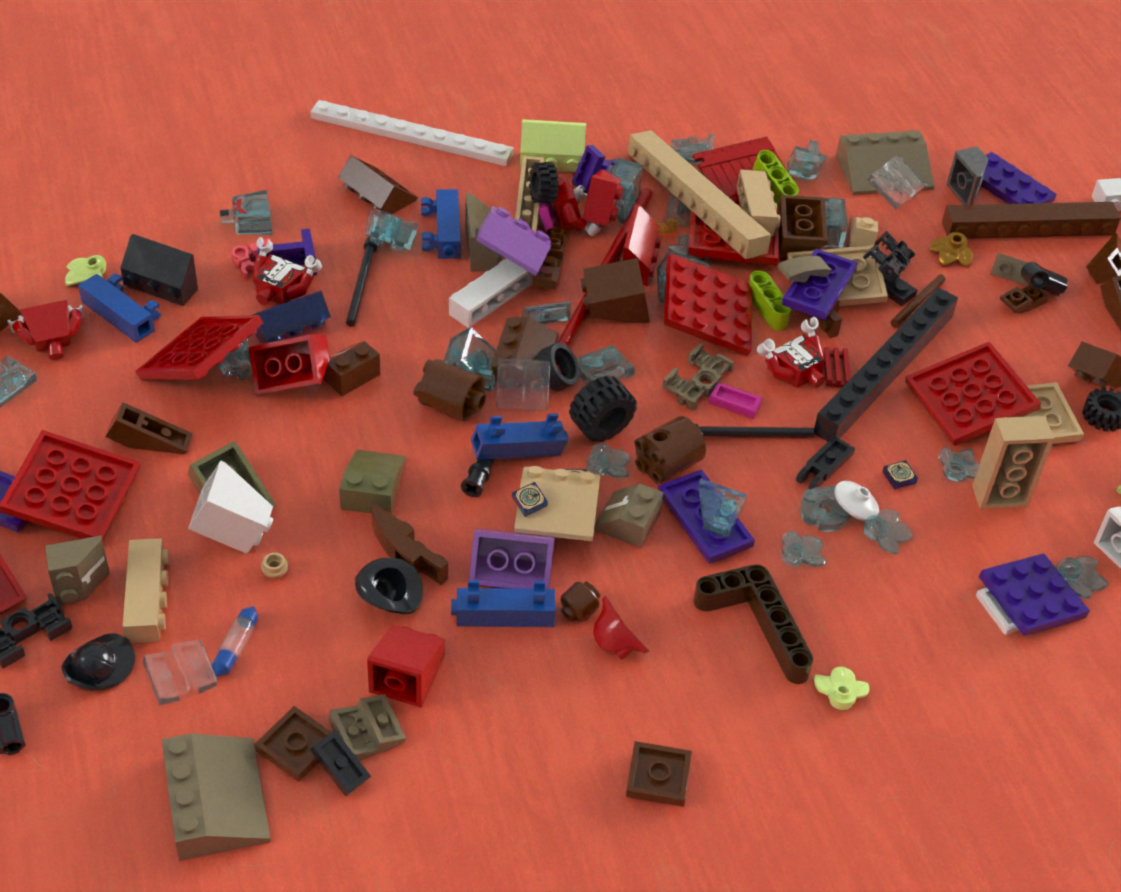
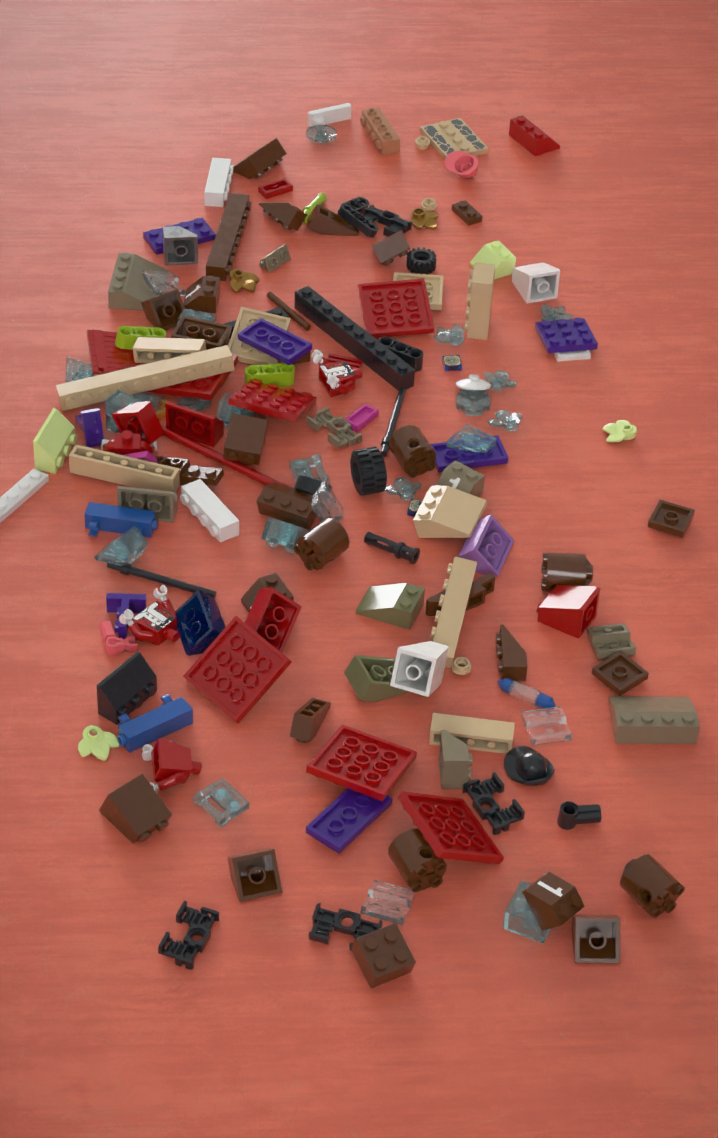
camera: 75 degrees left, 5 degrees down
(249, 213) = (63, 630): clear light blue torso -> none
(298, 613) = (512, 656): none -> reddish brown slope
(340, 763) = (643, 651): black plate -> none
(352, 529) = (453, 605): none -> tan brick
(375, 186) = (56, 553): slope -> none
(390, 585) = (500, 608): black hat -> none
(475, 645) = (565, 570): none -> reddish brown cylinder
(504, 606) = (528, 557): blue brick -> none
(514, 239) = (184, 472): medium lavender slope -> none
(519, 439) = (382, 518): blue brick -> none
(529, 499) = (452, 517): tile -> none
(543, 182) = (126, 432): black tyre -> none
(548, 312) = (242, 488): clear light blue slope -> none
(580, 601) = (531, 523): reddish brown head -> none
(613, 634) = (561, 512): red hat -> none
(758, 588) = (555, 443): dark brown beam -> none
(801, 268) = (266, 340): dark tan slope -> none
(806, 162) = (120, 316): clear light blue brick -> none
(826, 462) = (435, 390): black hinge -> none
(848, 186) = (164, 309): none -> reddish brown slope
(862, 231) = (224, 308): tan slope -> none
(882, 415) = (409, 354): none -> black beam
(895, 261) = (251, 306): black piece -> none
(899, 221) = (203, 295): none -> reddish brown slope
(1024, 299) = (304, 263): reddish brown slope -> none
(1043, 278) = (295, 247): black piece -> none

